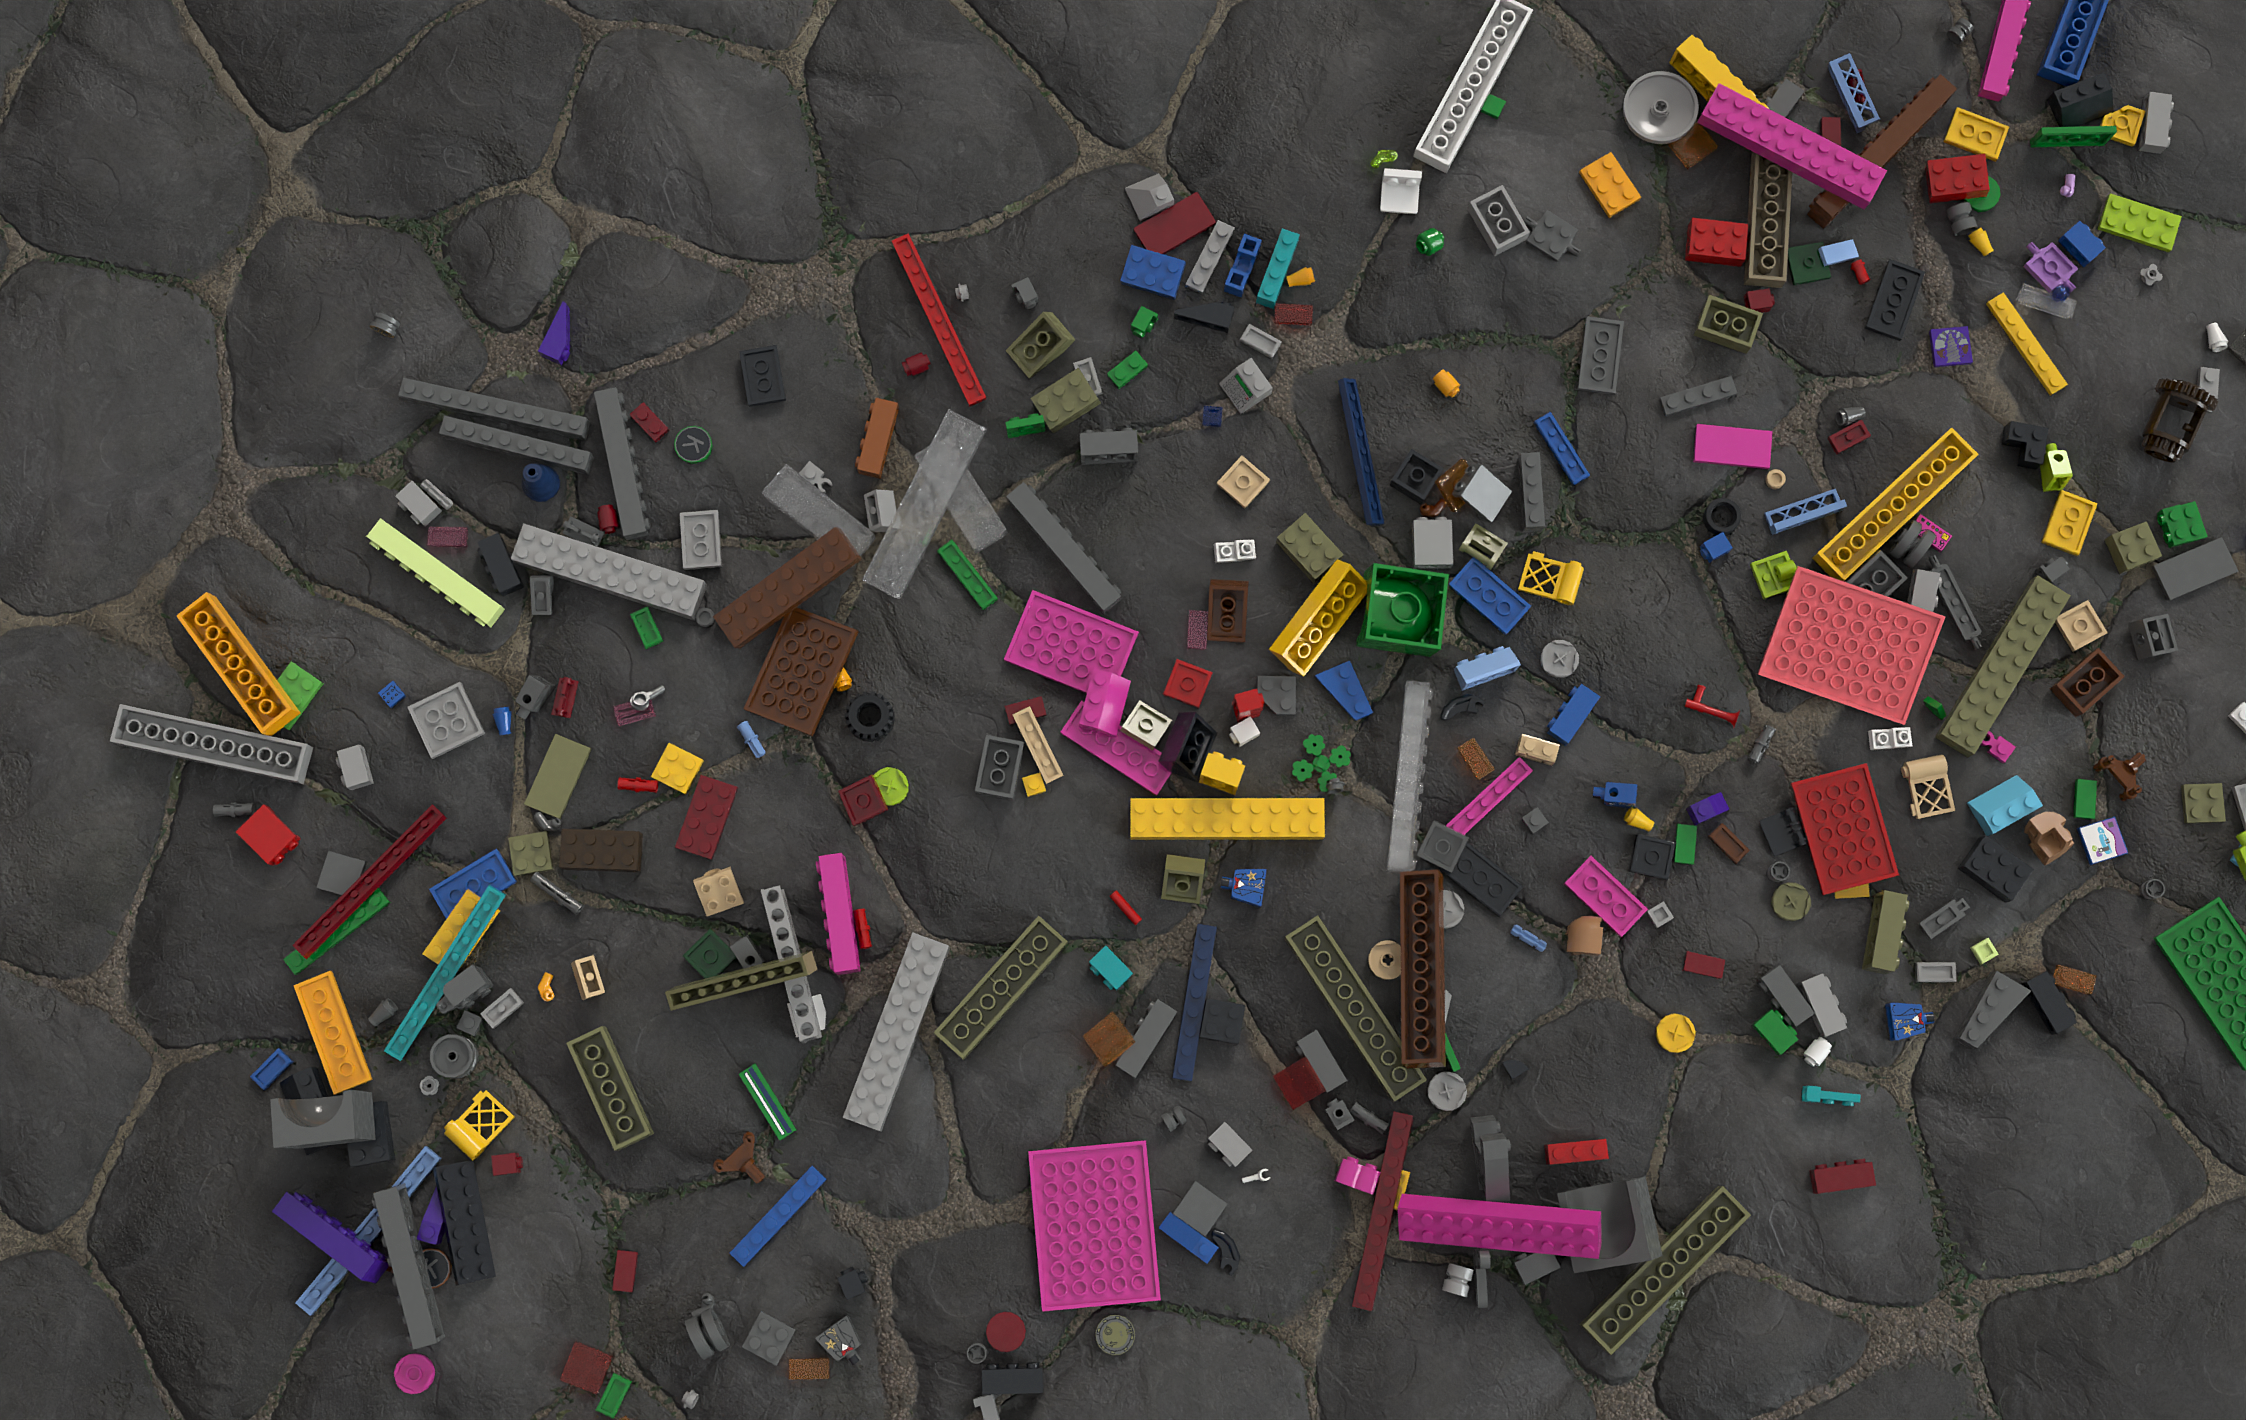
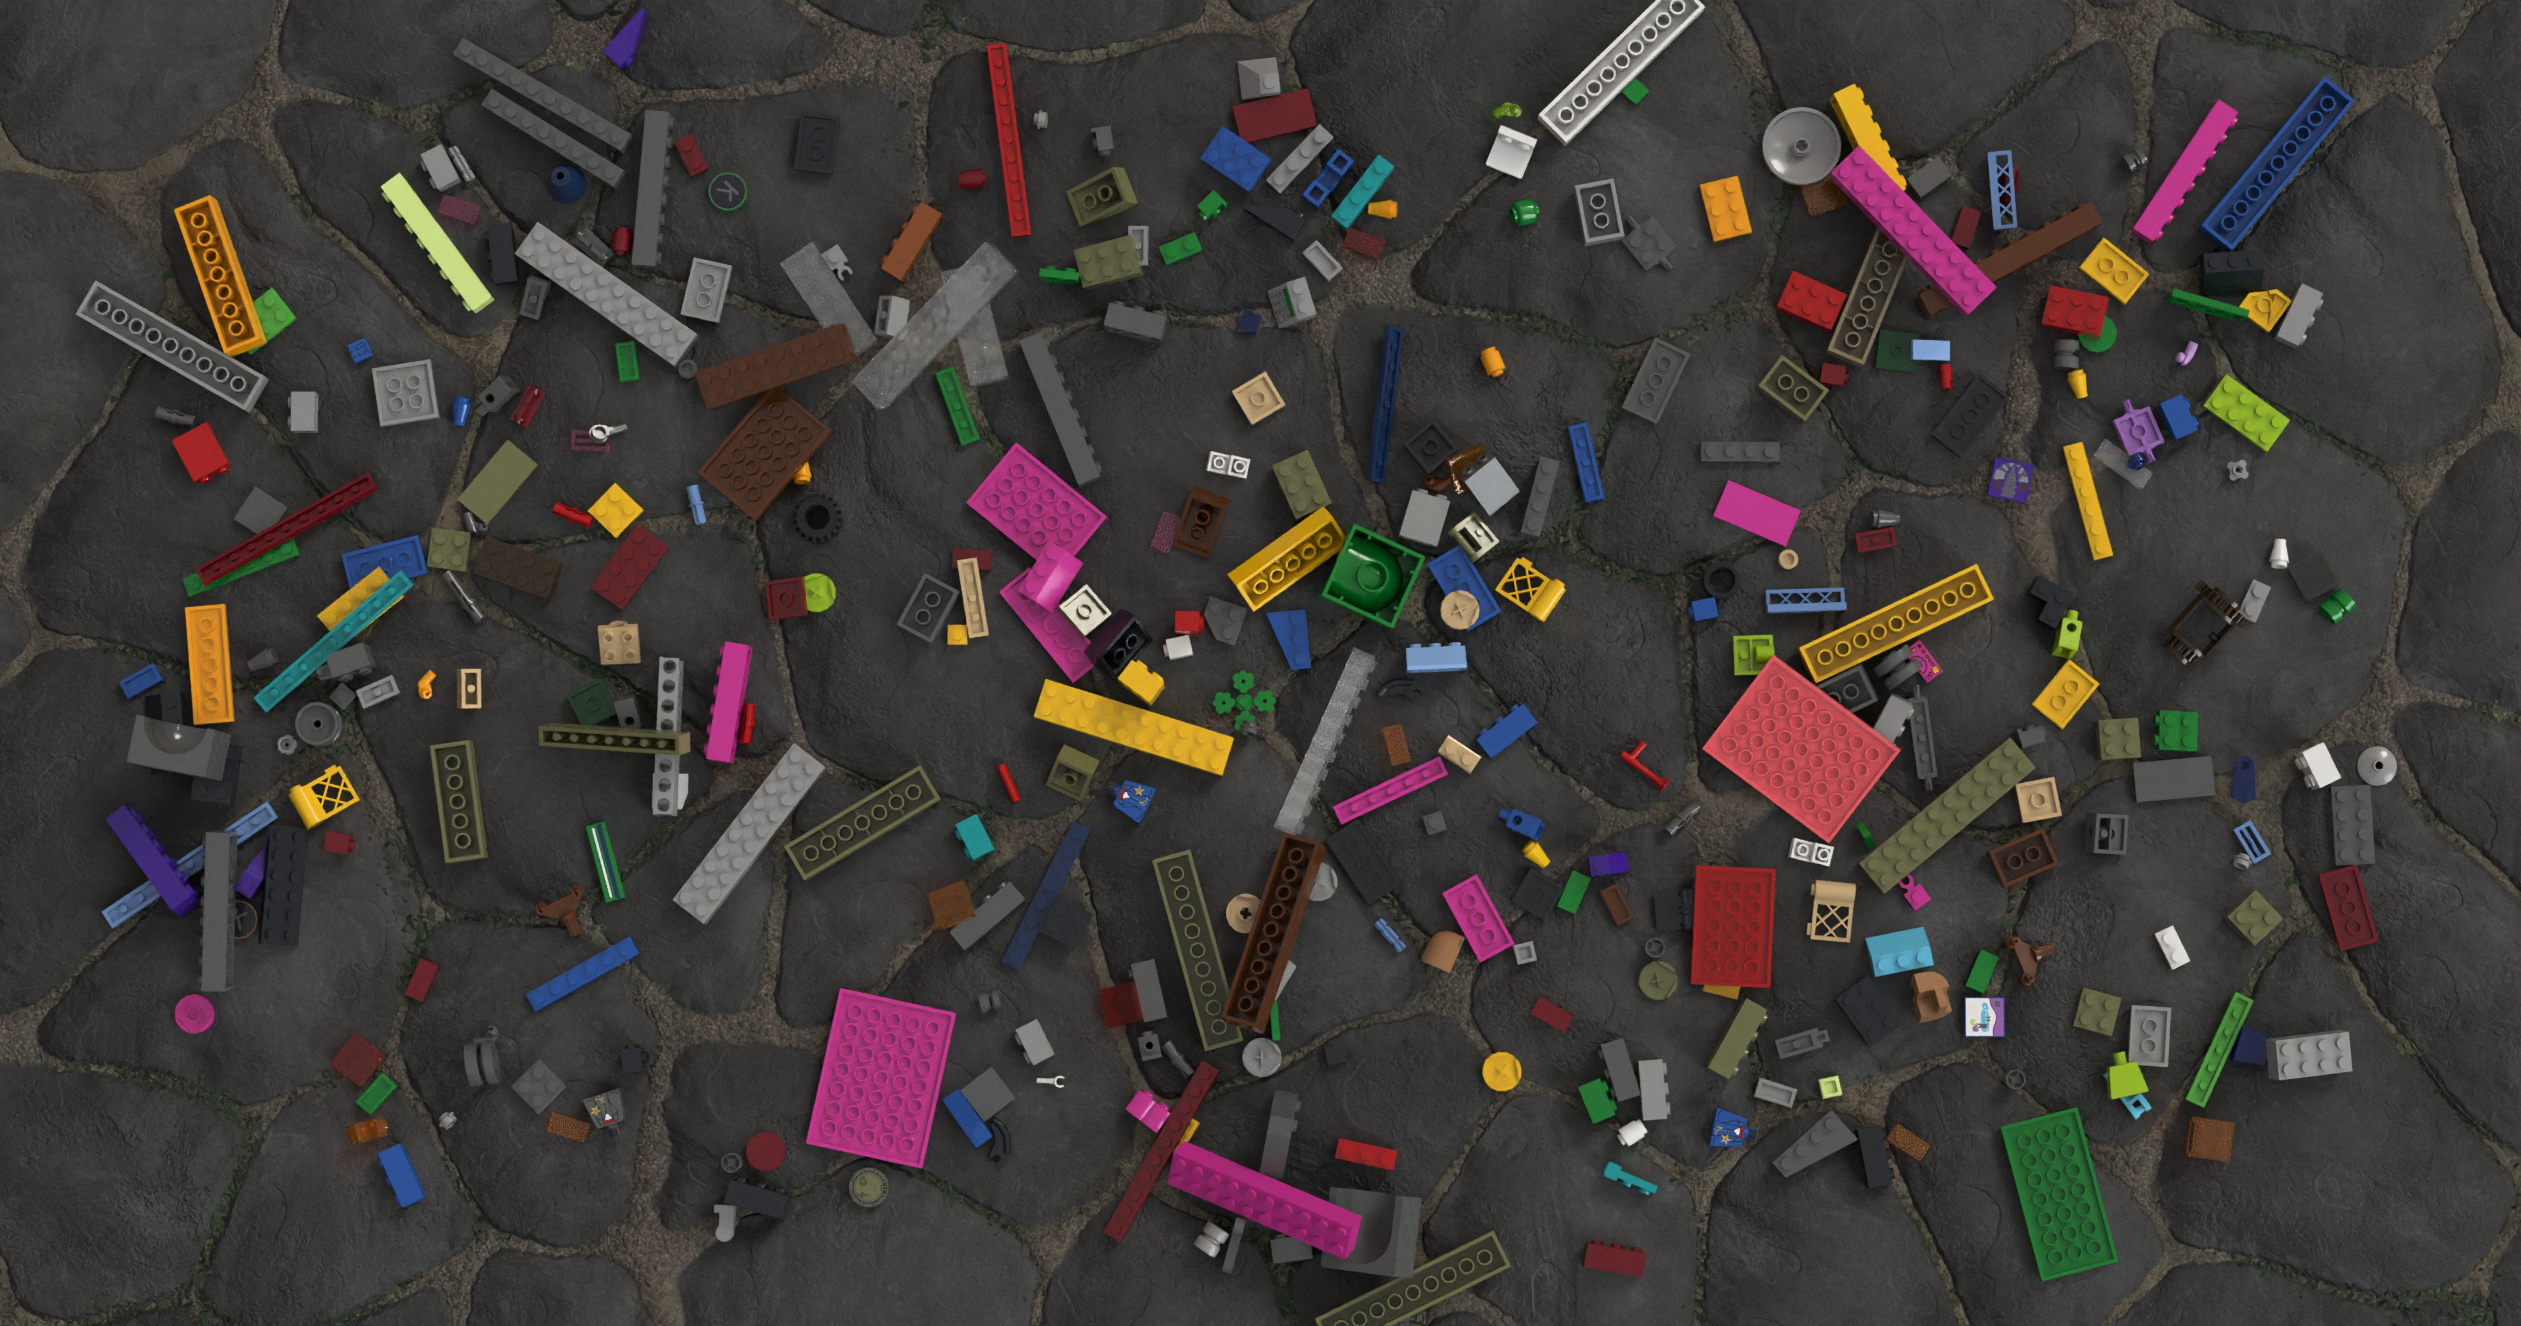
camera: 20 degrees right, 5 degrees up
(1187, 683) = (1139, 582): red tile -> none
(1443, 846) = (1334, 820): dark grey plate -> none
(1493, 616) = (1459, 610): none -> tan tile
(1559, 659) = (1512, 671): light grey tile -> none

